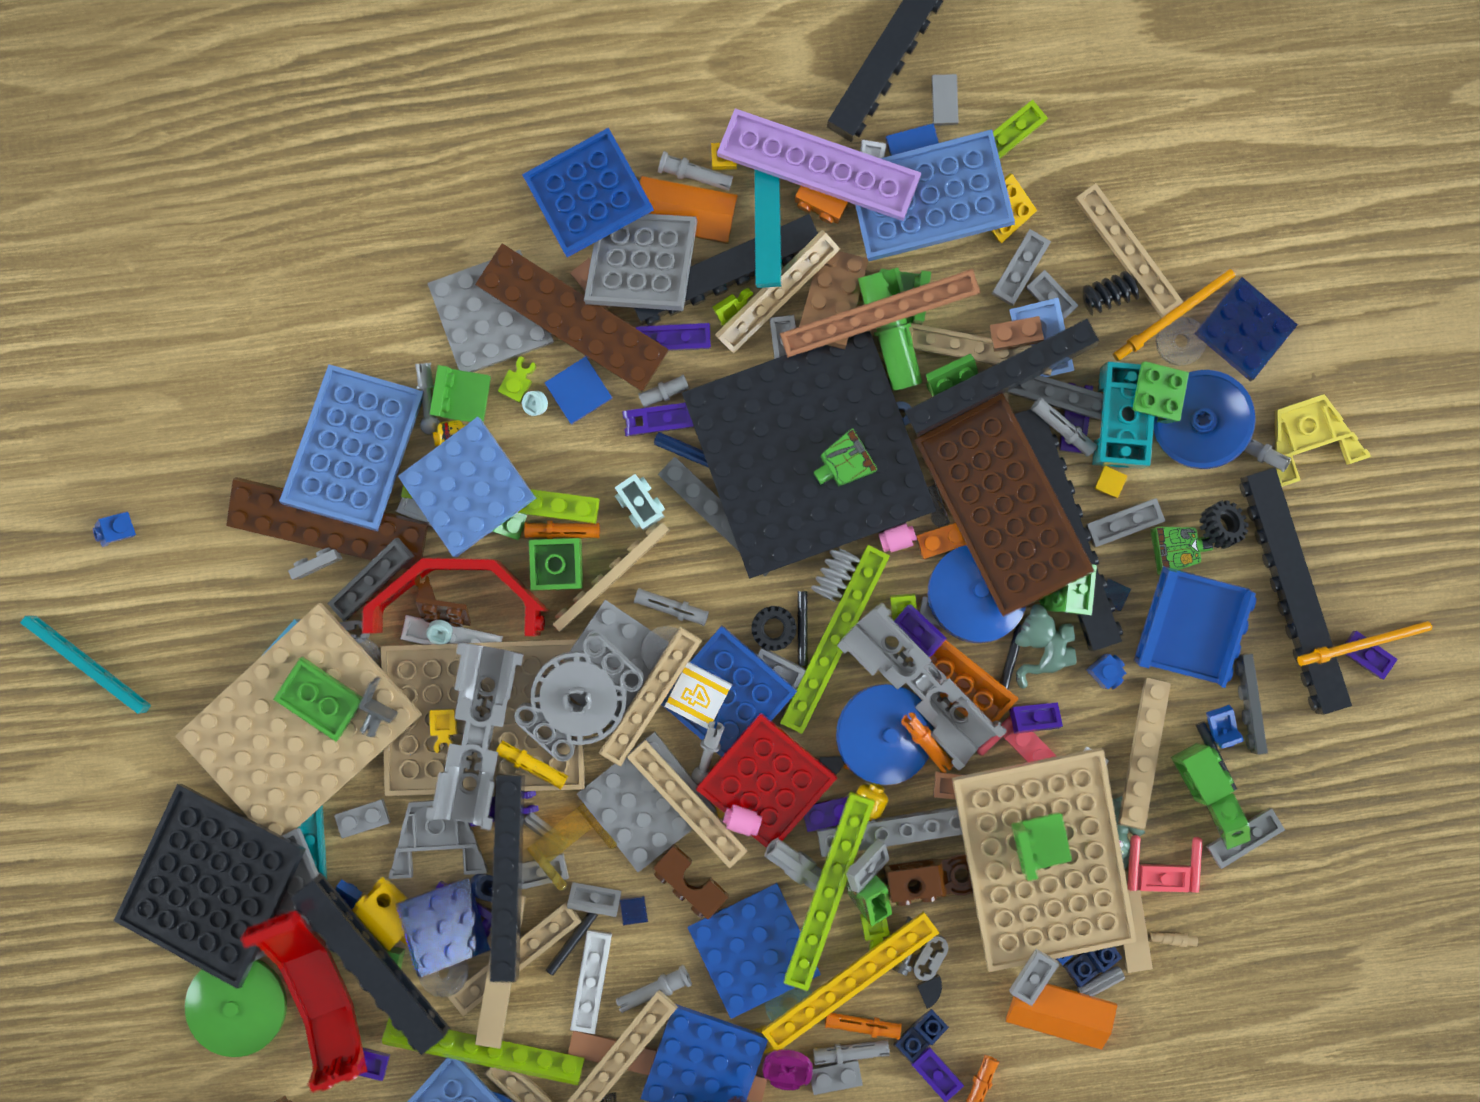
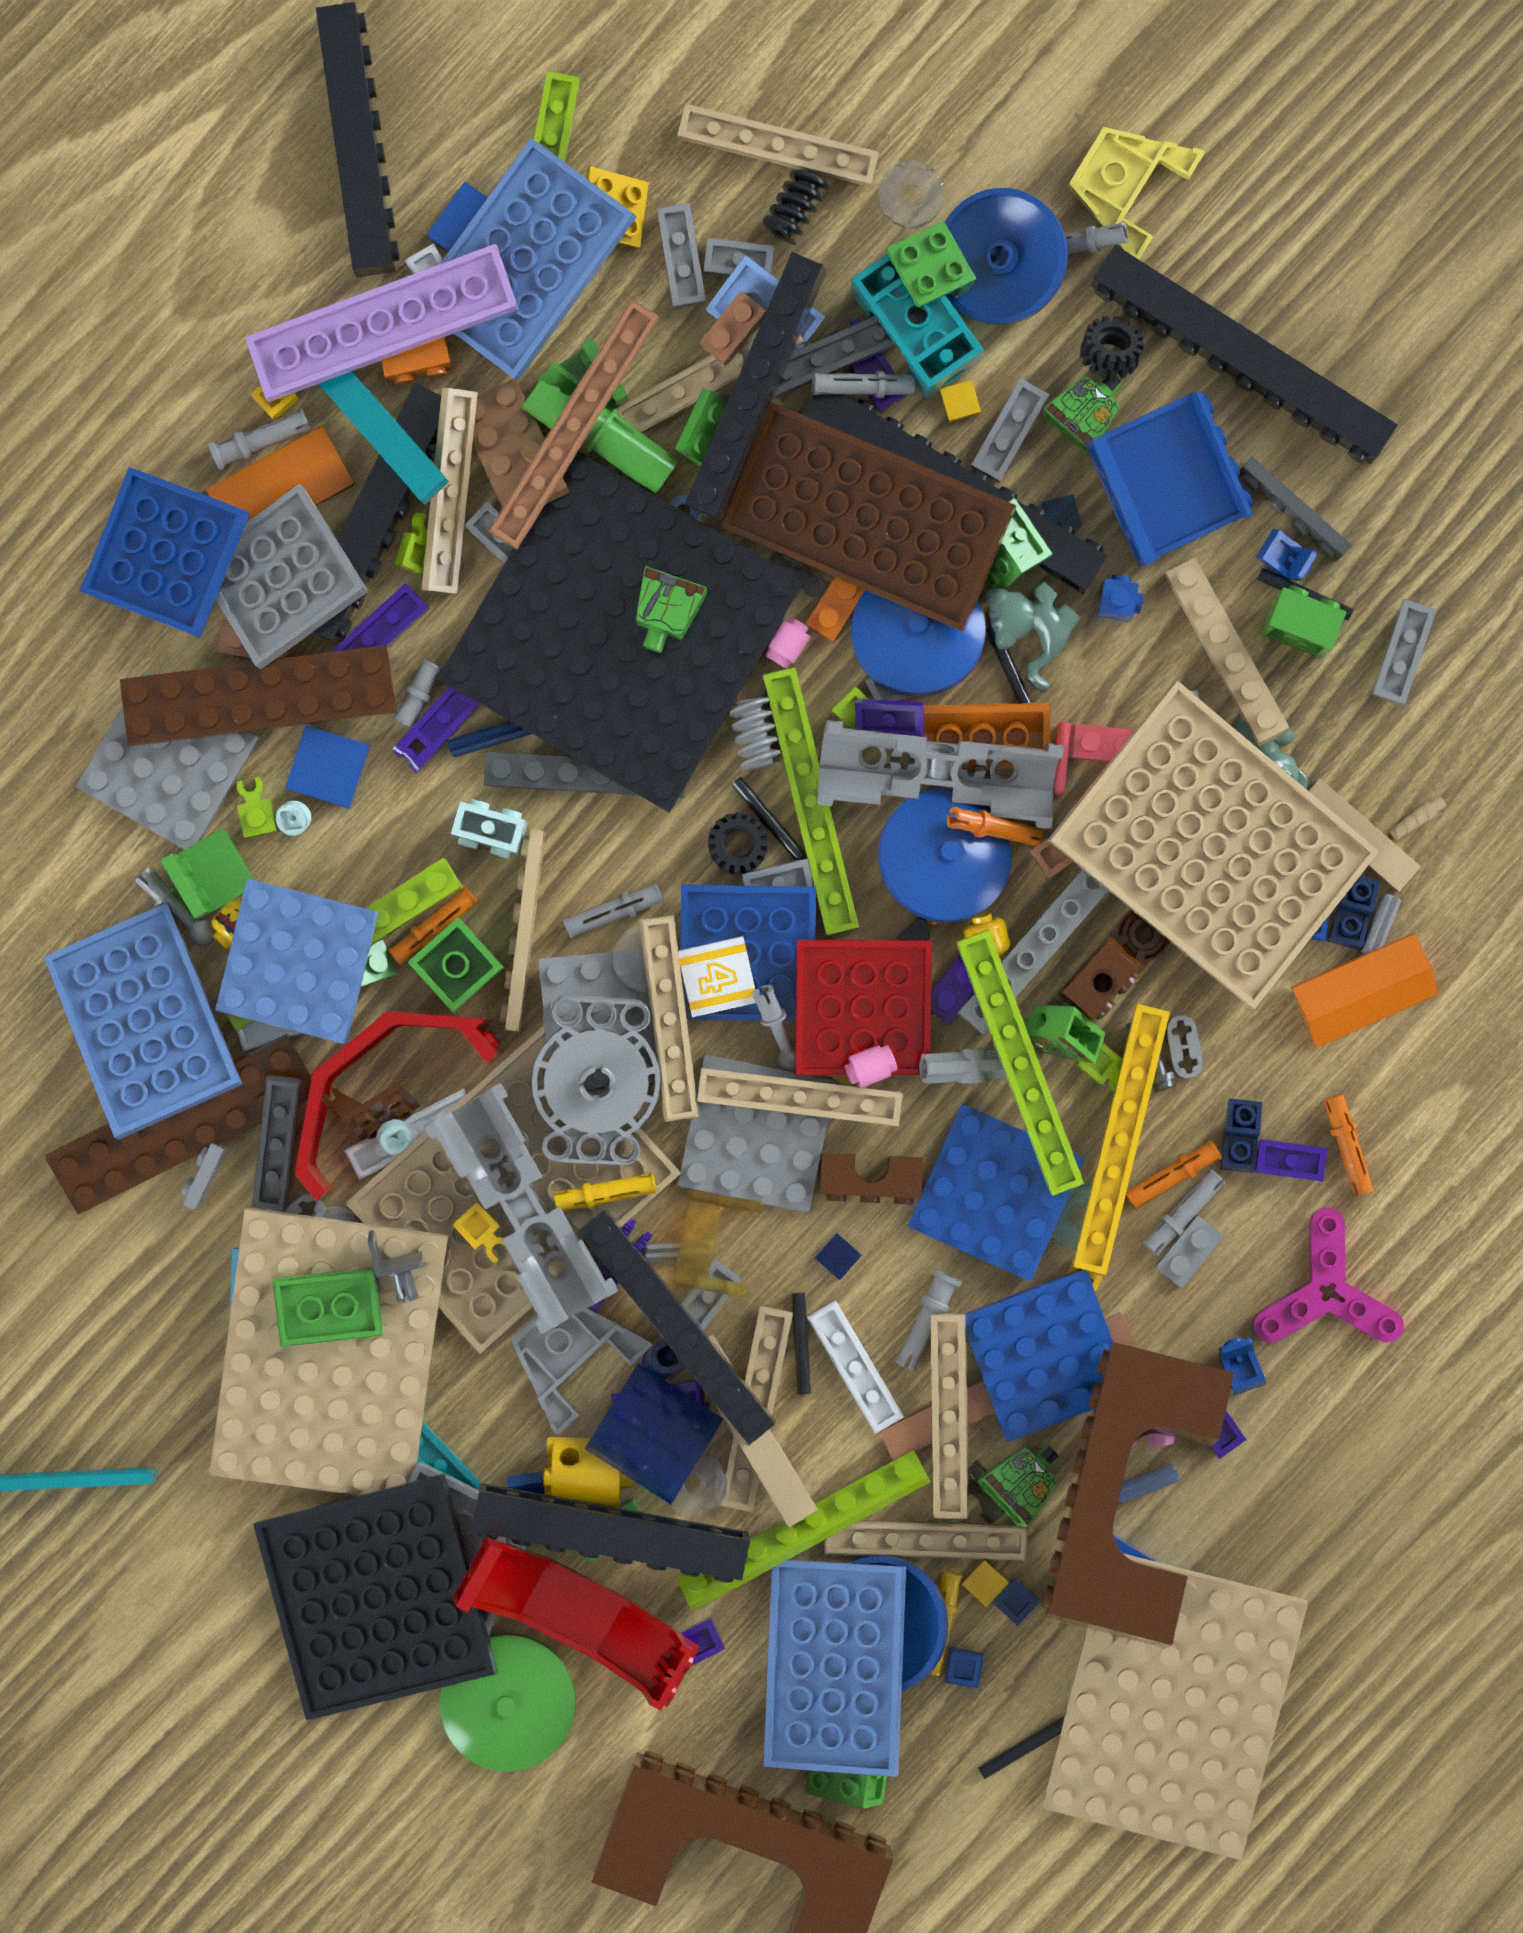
camera: 40 degrees left, 0 degrees up
(362, 818) = (476, 1398): light grey plate -> none
(594, 899) = (787, 1278): light grey plate -> none
(787, 1069) = (1132, 1283): magenta tile -> none
(867, 866) = (1037, 1002): light grey plate -> none
(930, 990) = (1212, 1081): black tile -> none
(944, 99) = (456, 146): light grey tile -> none
(1034, 977) = (1303, 974): light grey plate -> none
(1035, 717) = (1085, 708): dark purple plate -> none
(1041, 843) = (1194, 829): bright green bracket -> none
(1137, 341) = (865, 234): light orange bar -> none
(1164, 877) = (1354, 761): coral plate -> none
(1229, 819) = (1366, 644): bright green torso -> none
(1246, 329) = (967, 126): clear blue plate -> none
(1325, 654) = (1324, 394): light orange bar -> none
(1373, 658) = (1373, 358): dark purple plate -> none

